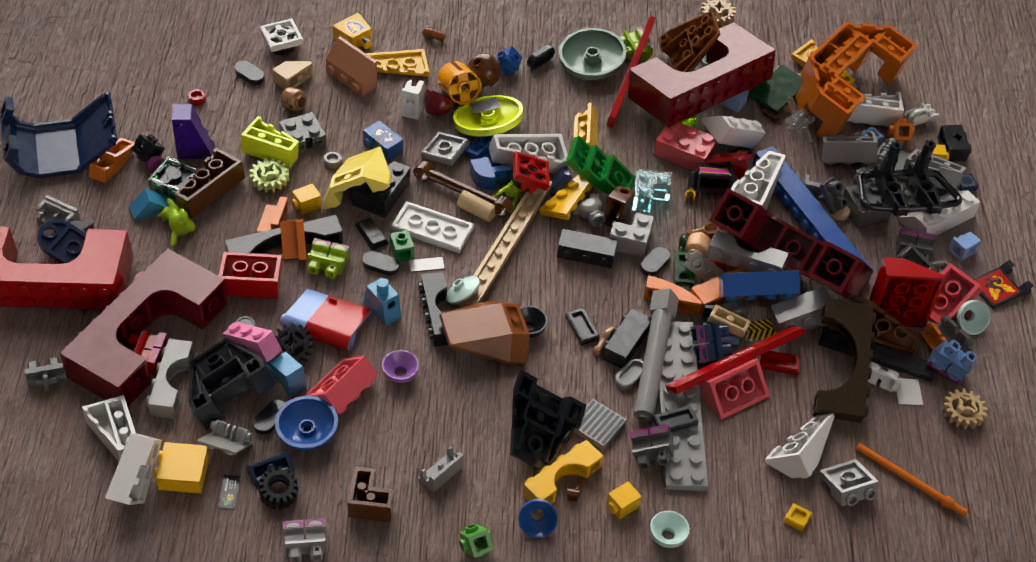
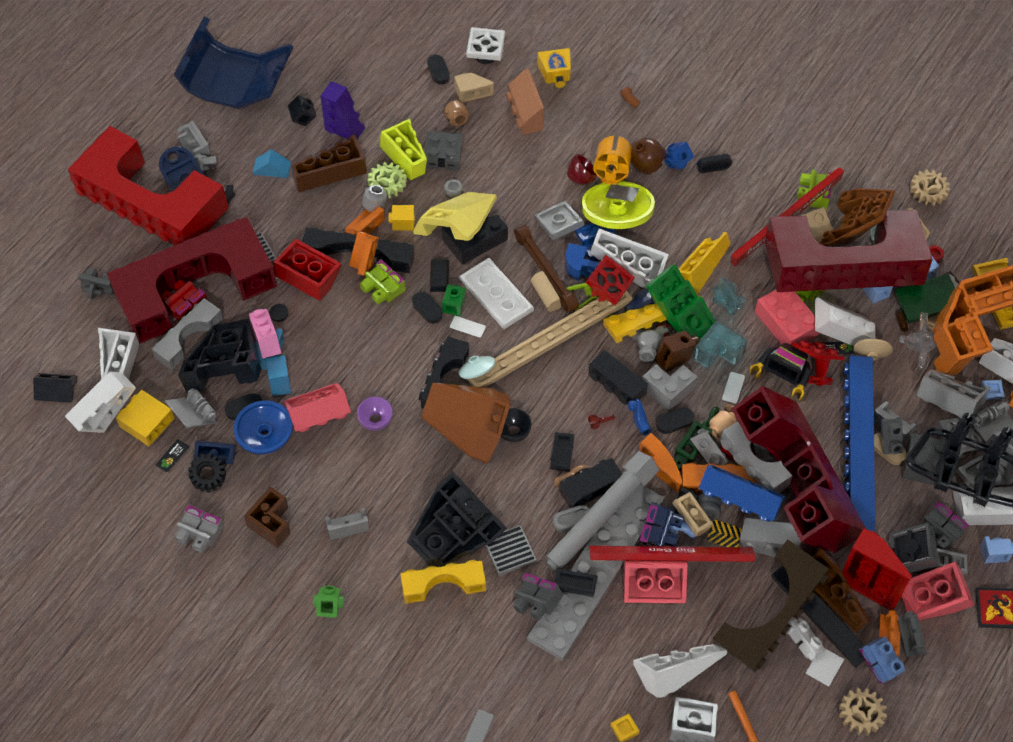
camera: 35 degrees right, 10 degrees up
(66, 485) = (54, 387): none -> black panel
(112, 161) = (267, 109): orange slope -> none
(153, 163) = (300, 129): magenta tile -> none
(170, 176) = (303, 145): piece -> none
(178, 221) = (282, 192): lime animal -> none
(196, 97) = (377, 75): red tile -> none
(270, 192) = (374, 197): none -> light grey head
(300, 344) = (303, 342): black gear -> none
(327, 318) = (345, 338): door -> none
(381, 136) = (507, 189): blue brick -> none
(383, 301) = (400, 342): dark azure torso -> none
(402, 62) = (577, 114): yellow wing -> none
(412, 100) = (558, 159): white hinge -> none
(538, 528) = (388, 613): blue piece -> none
(572, 494) = (442, 603): reddish brown hand -> none
(591, 287) = (599, 420): none -> clear red hand
(592, 54) = (764, 181): sand green dish -> none
(623, 500) = (478, 631): yellow brick -> none
(626, 270) = (639, 416): none -> blue arm
(627, 150) = (726, 296): none -> clear light blue hips
(671, 522) = (501, 669): light aqua piece -> none
(680, 217) = (733, 387): none -> white sticker
(761, 179) = (826, 390): white wedge -> none
(768, 139) = (873, 348): none -> tan dish
(780, 362) = (720, 576): red tile -> none
(979, 319) = (943, 634): light aqua piece -> none

